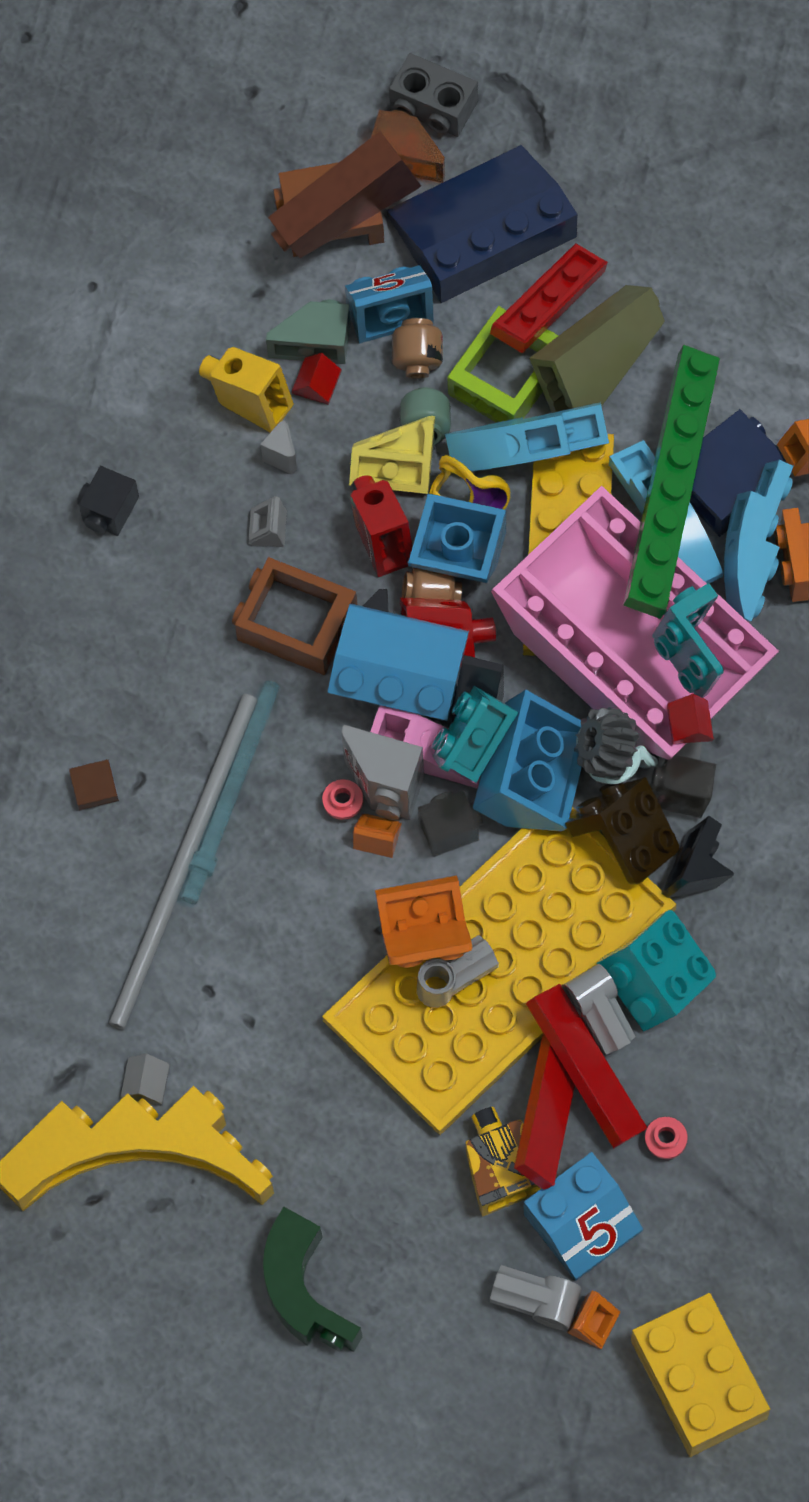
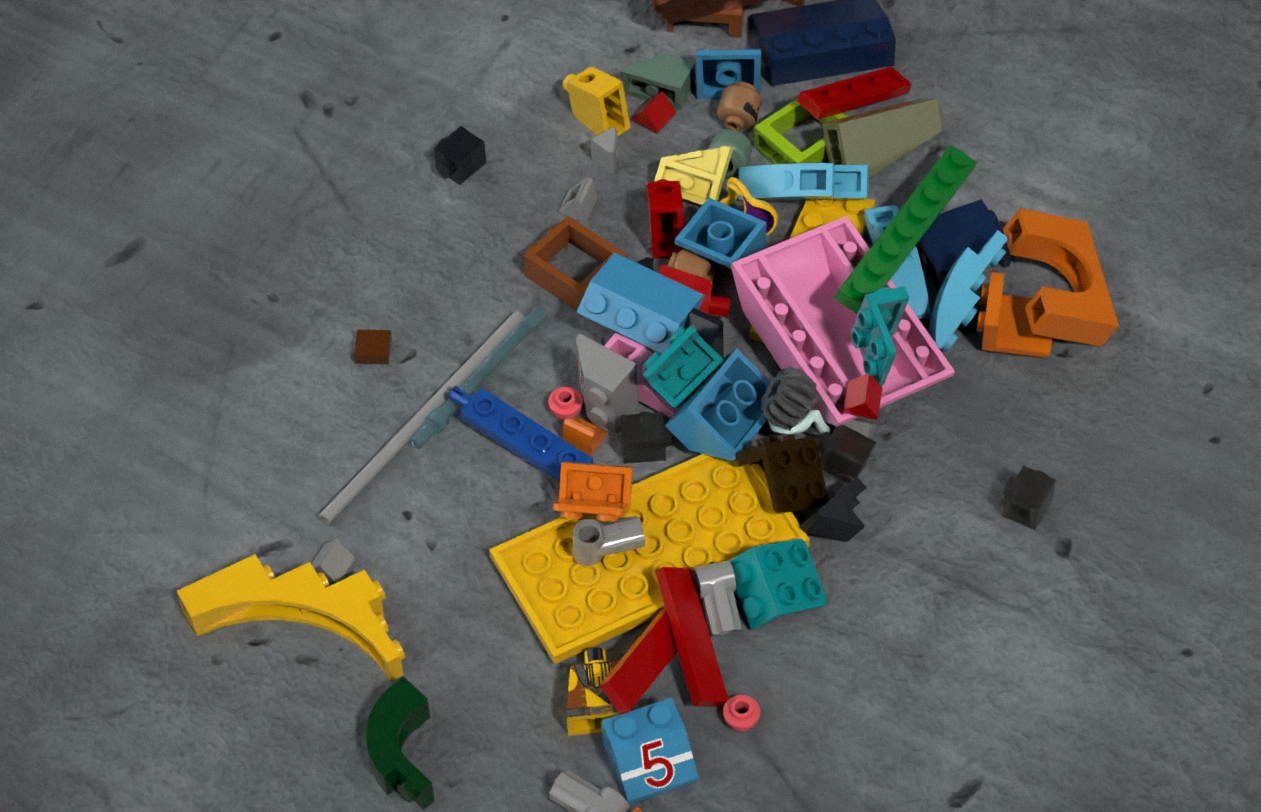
camera: 15 degrees right, 15 degrees down
(308, 857) = (517, 431): none -> blue plate

